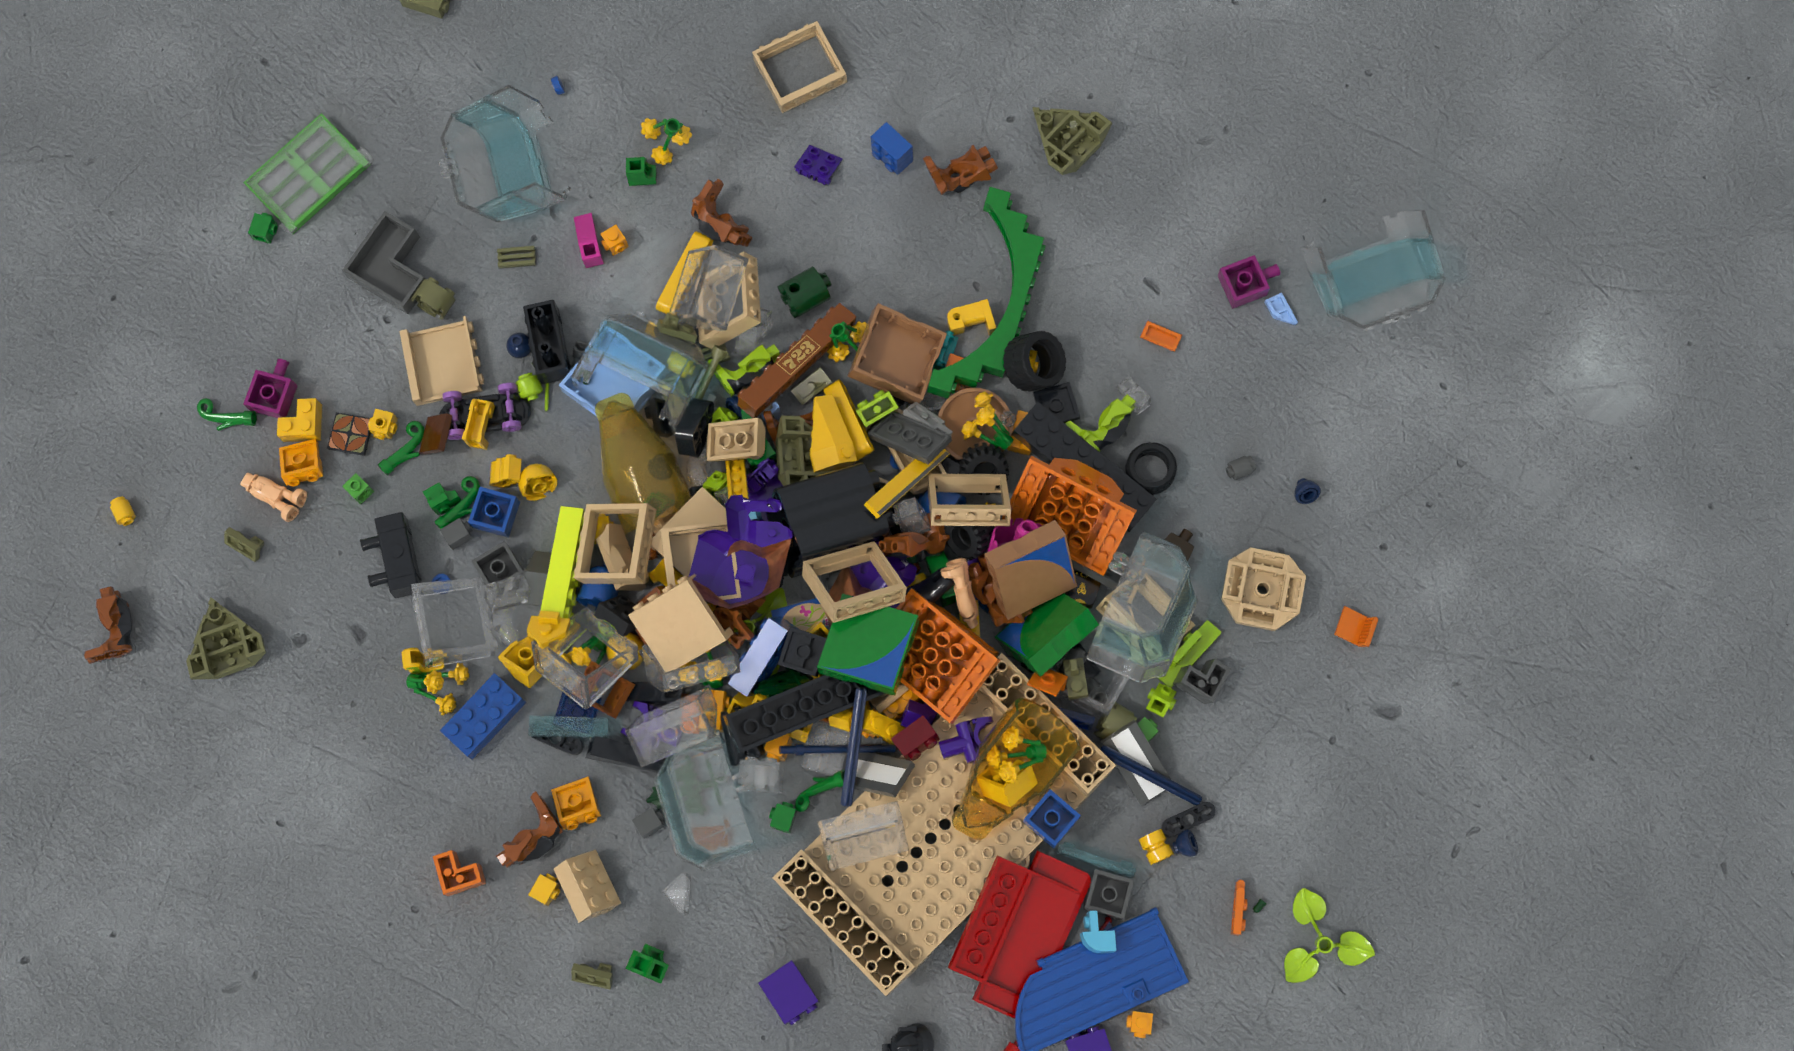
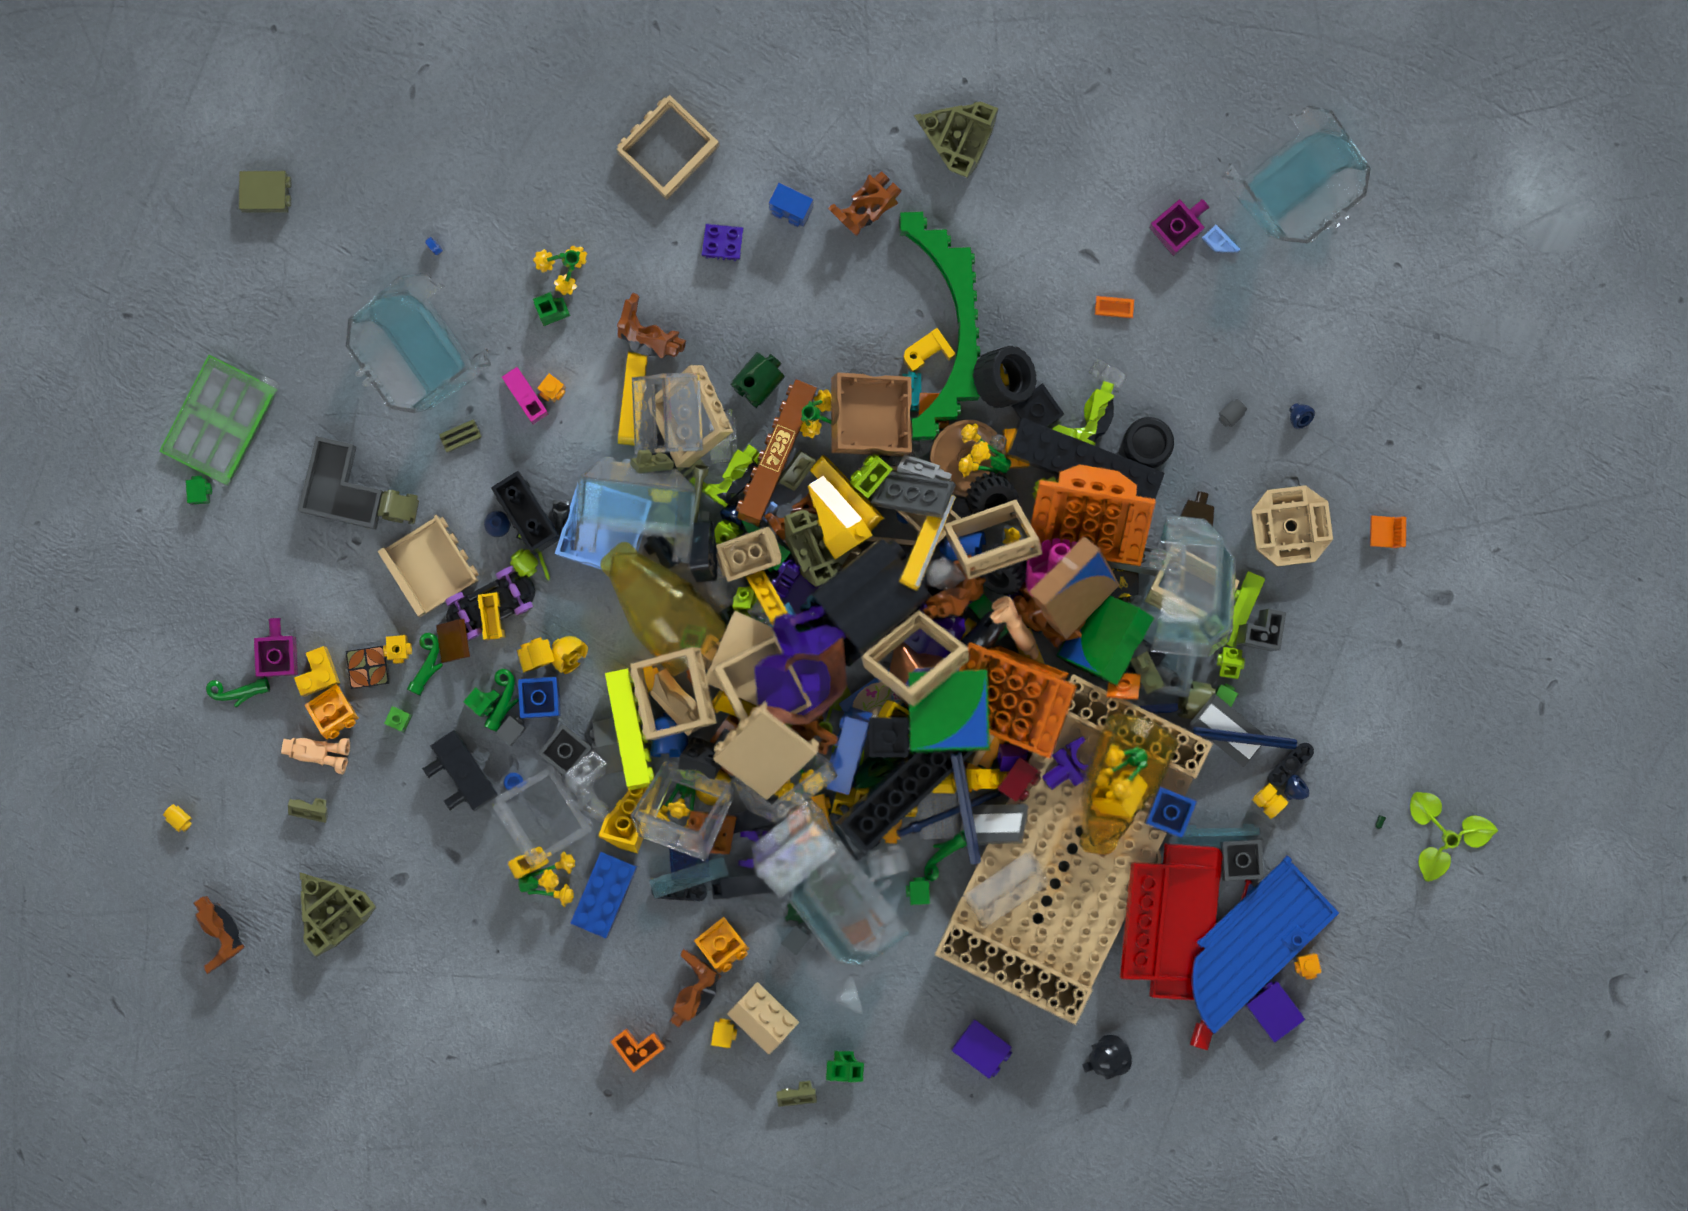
camera: 25 degrees left, 10 degrees up
(547, 628) = (640, 796): yellow plate -> none
(1097, 940) = (1243, 905): medium azure brick -> none
(1239, 906) = (1363, 828): orange hinge -> none

